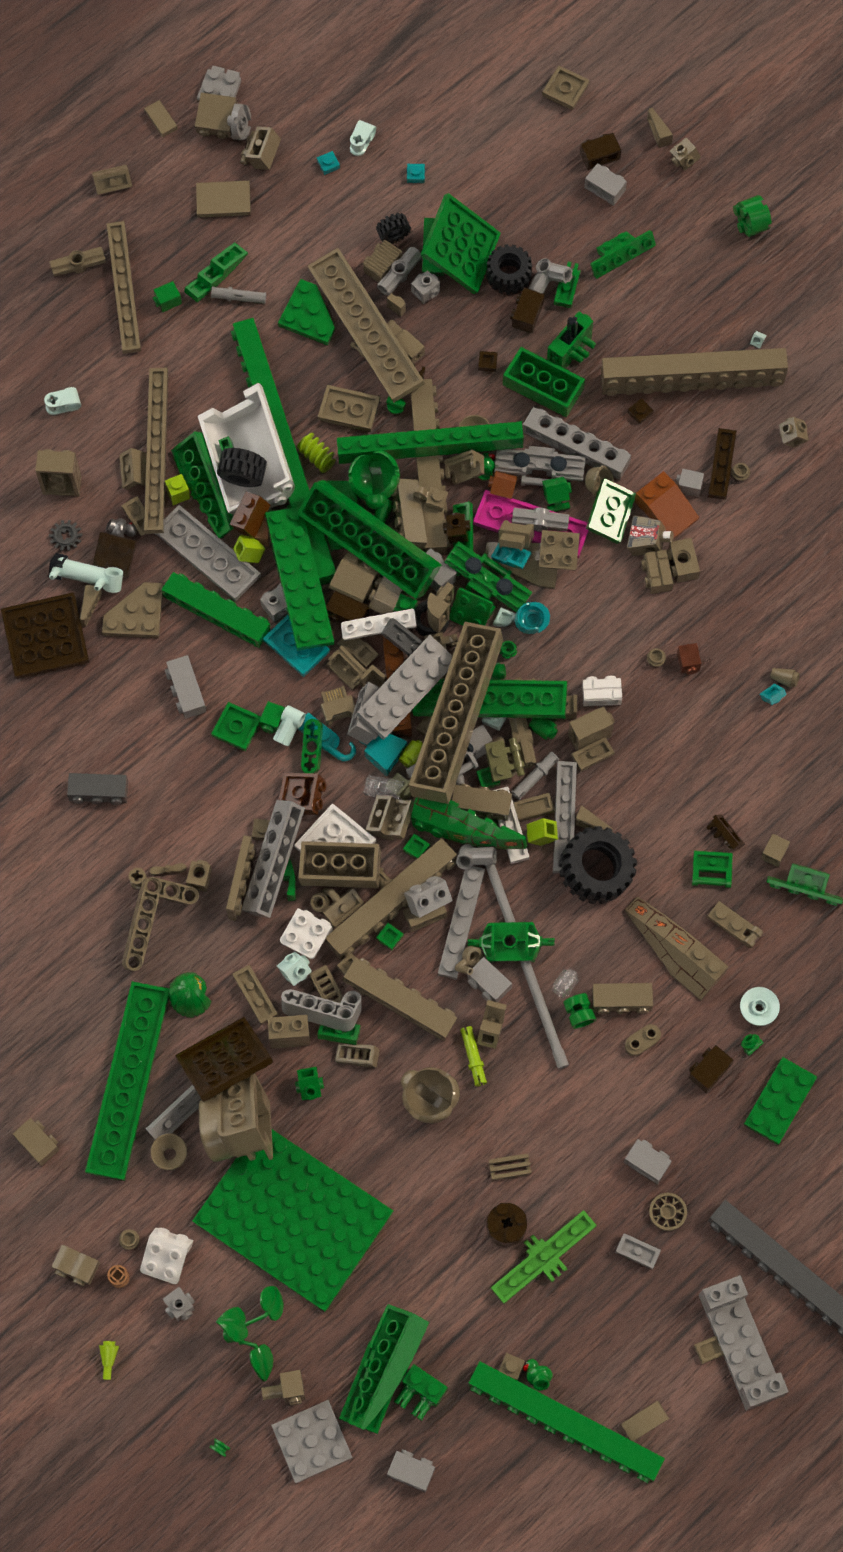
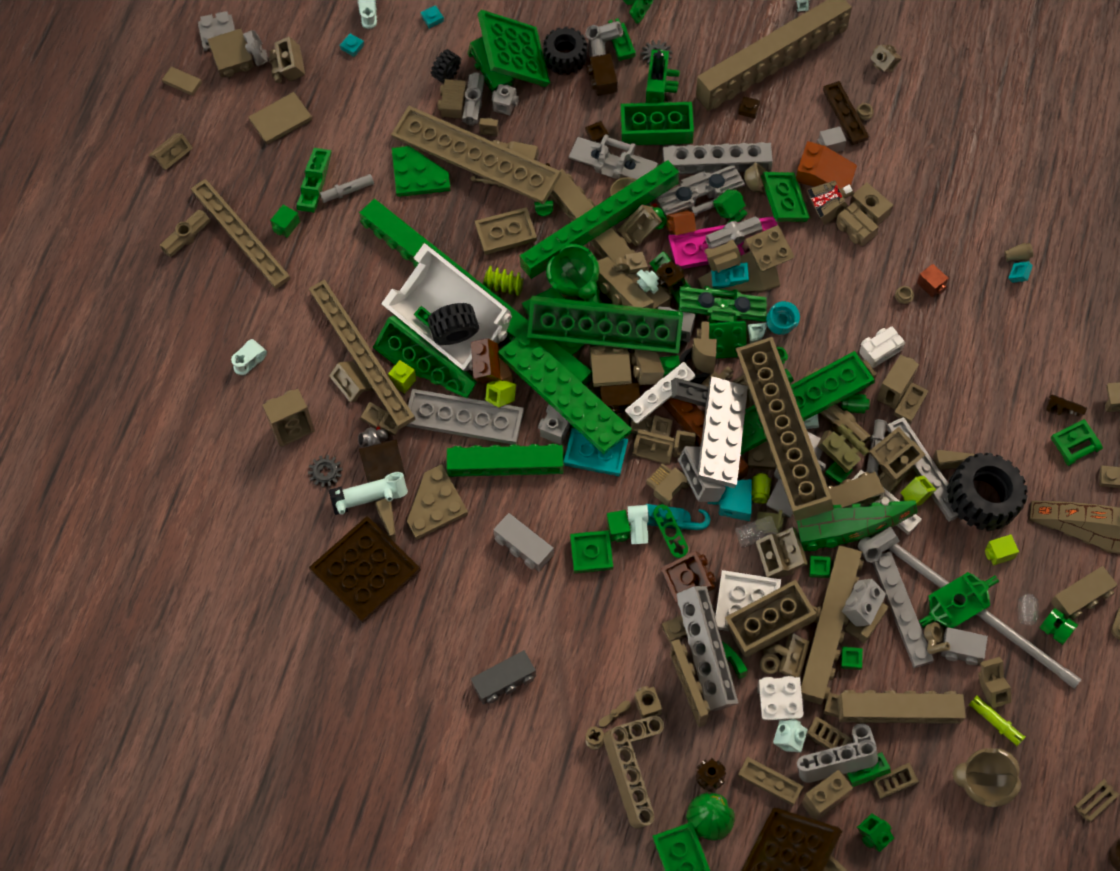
camera: 30 degrees left, 5 degrees down
(211, 967) = (710, 781): none -> dark brown brick
(432, 521) = (648, 281): none -> light aqua plate
(478, 397) = (608, 164): none -> light grey piece
(543, 789) = (896, 453): none -> dark tan brick
(578, 921) = (1001, 550): none -> lime brick
(597, 310) = (647, 50): none -> dark grey gear

